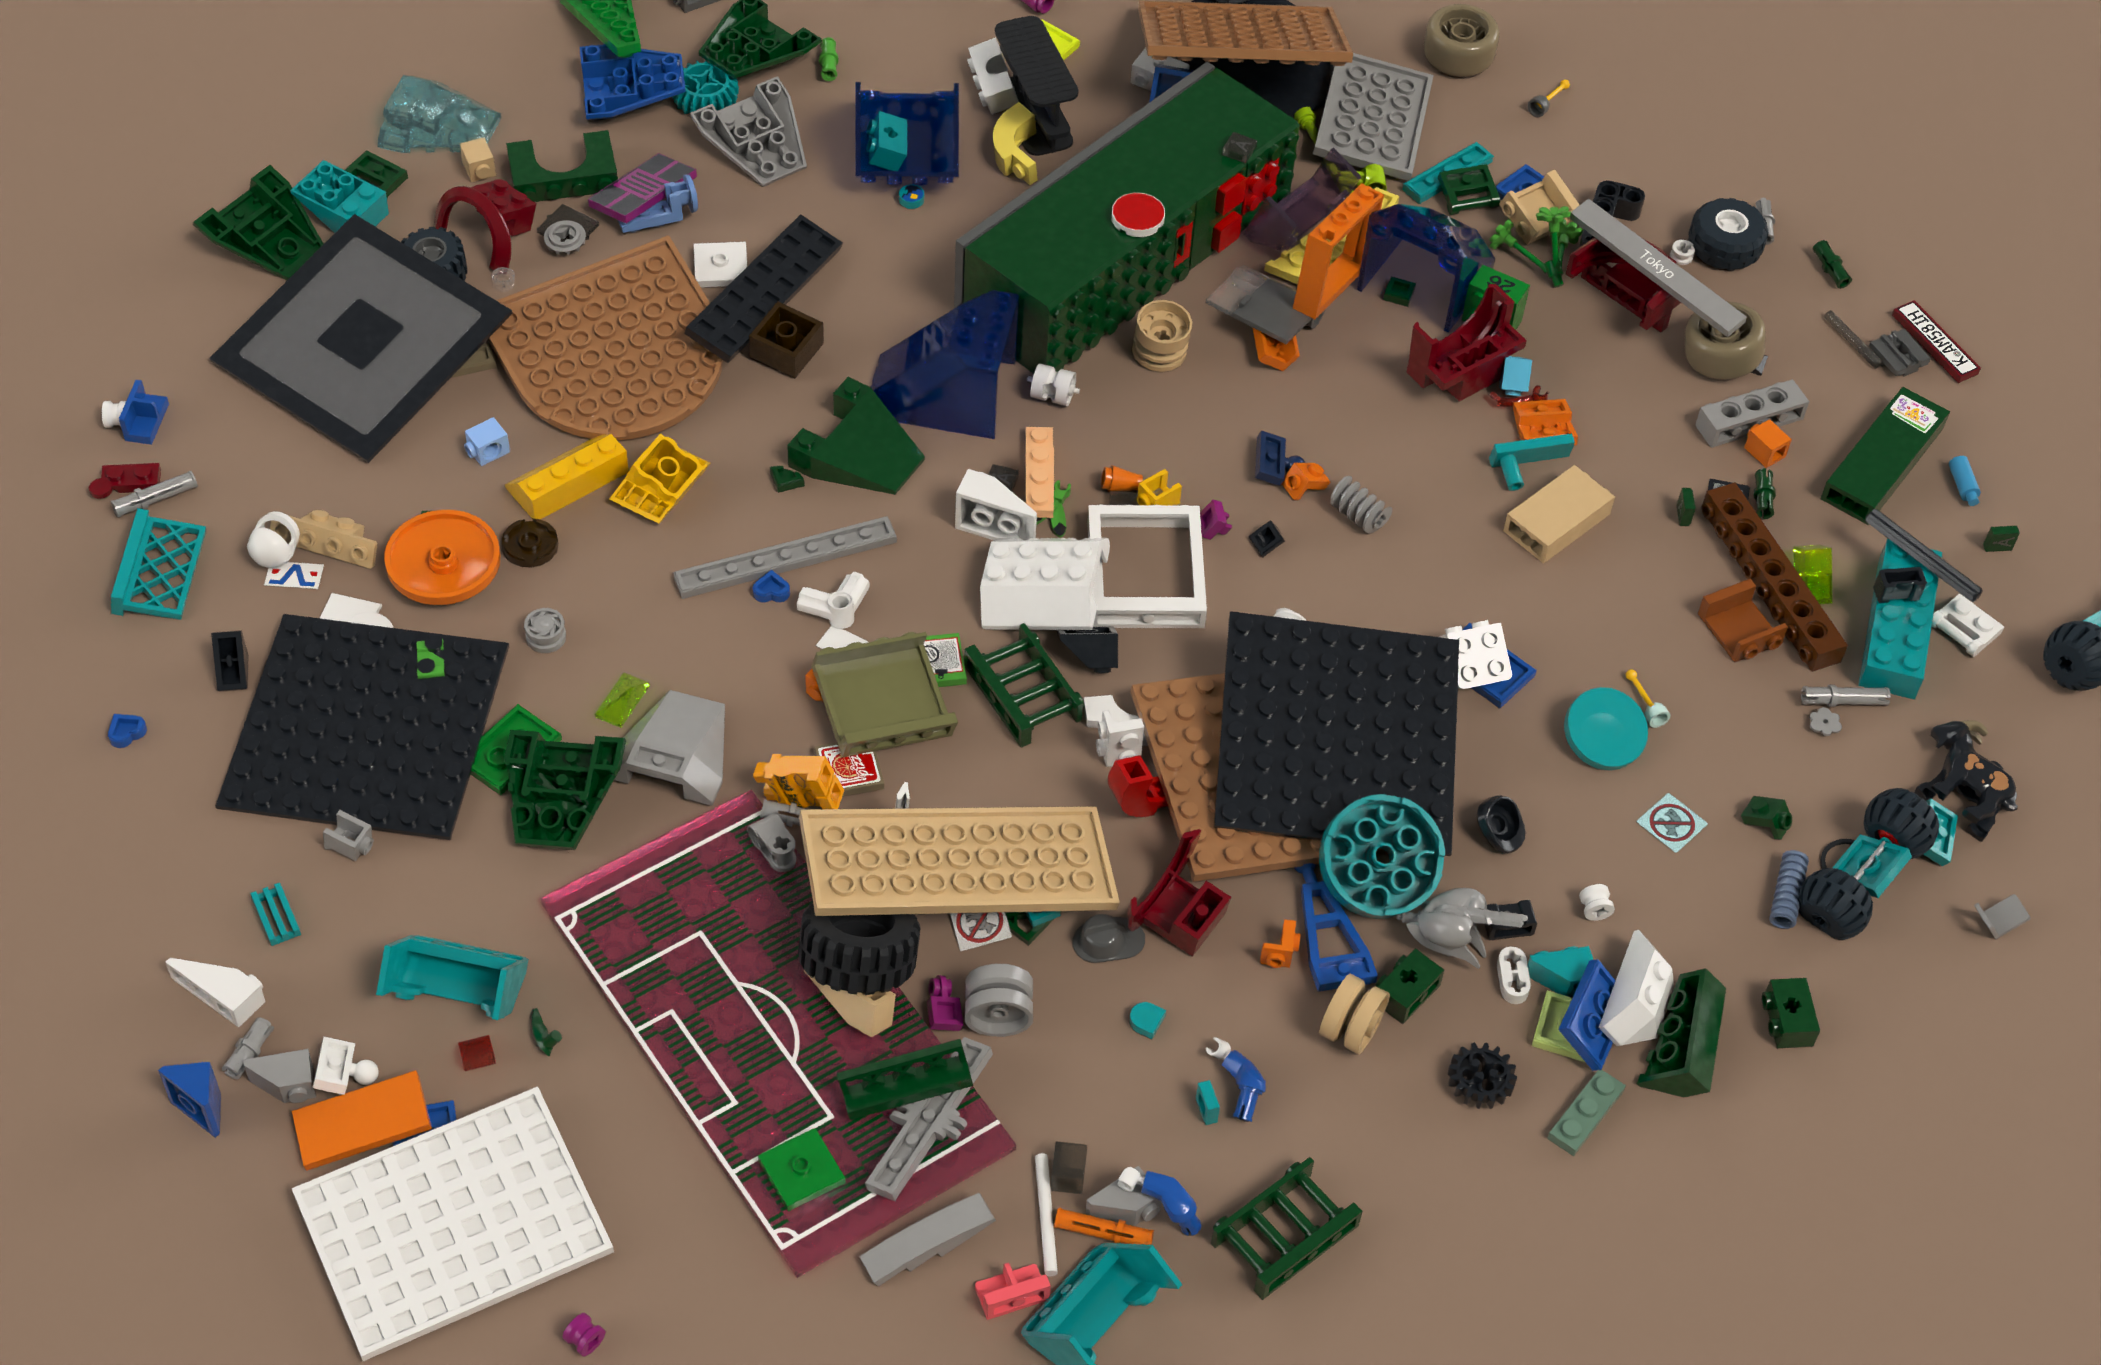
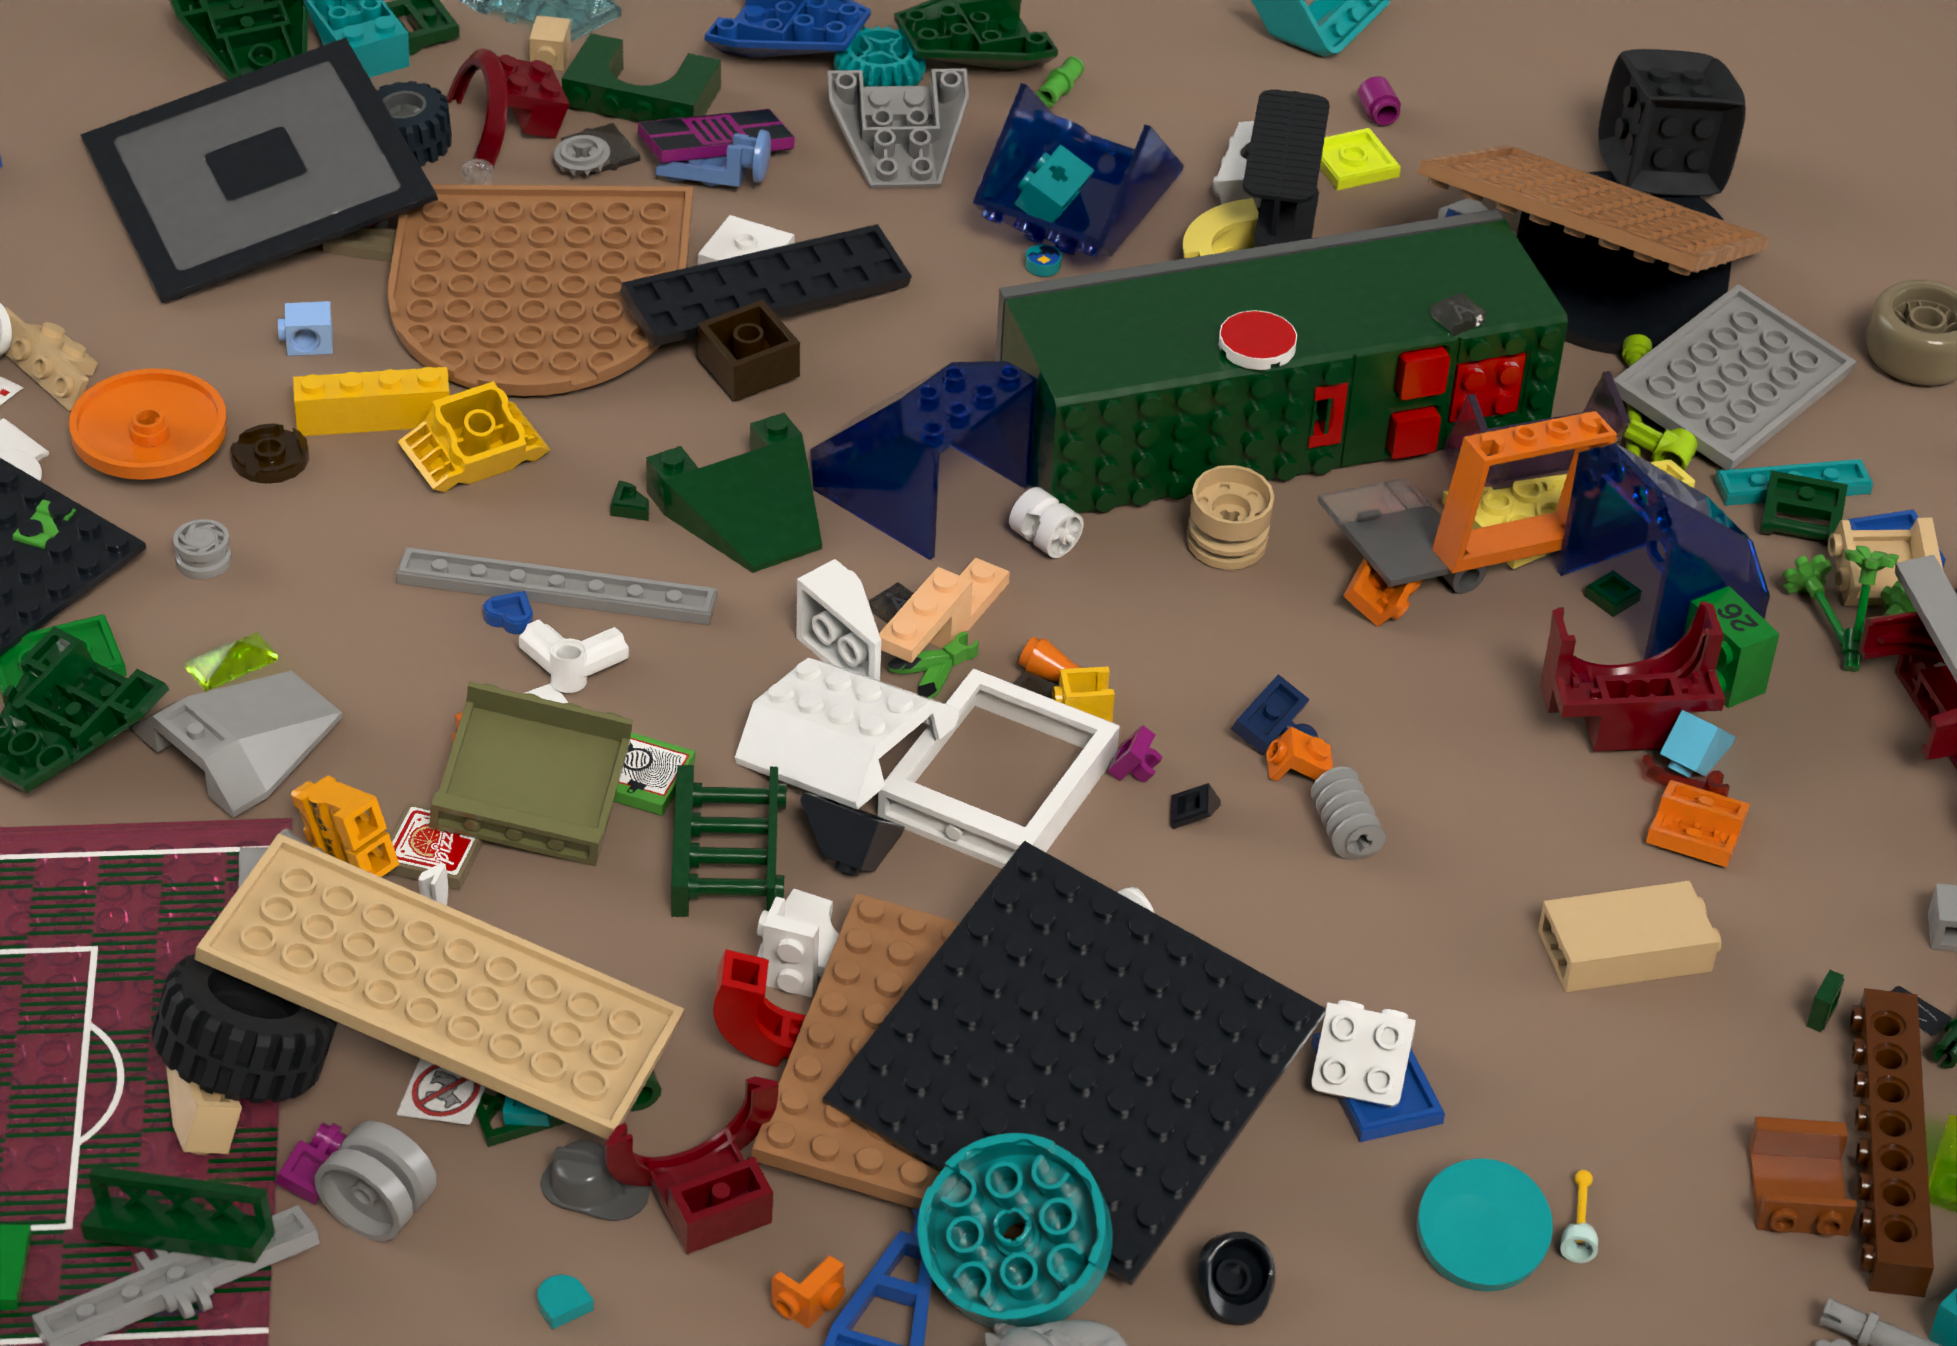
camera: 30 degrees right, 10 degrees down
(1511, 454) = (1642, 843): teal piece -> none

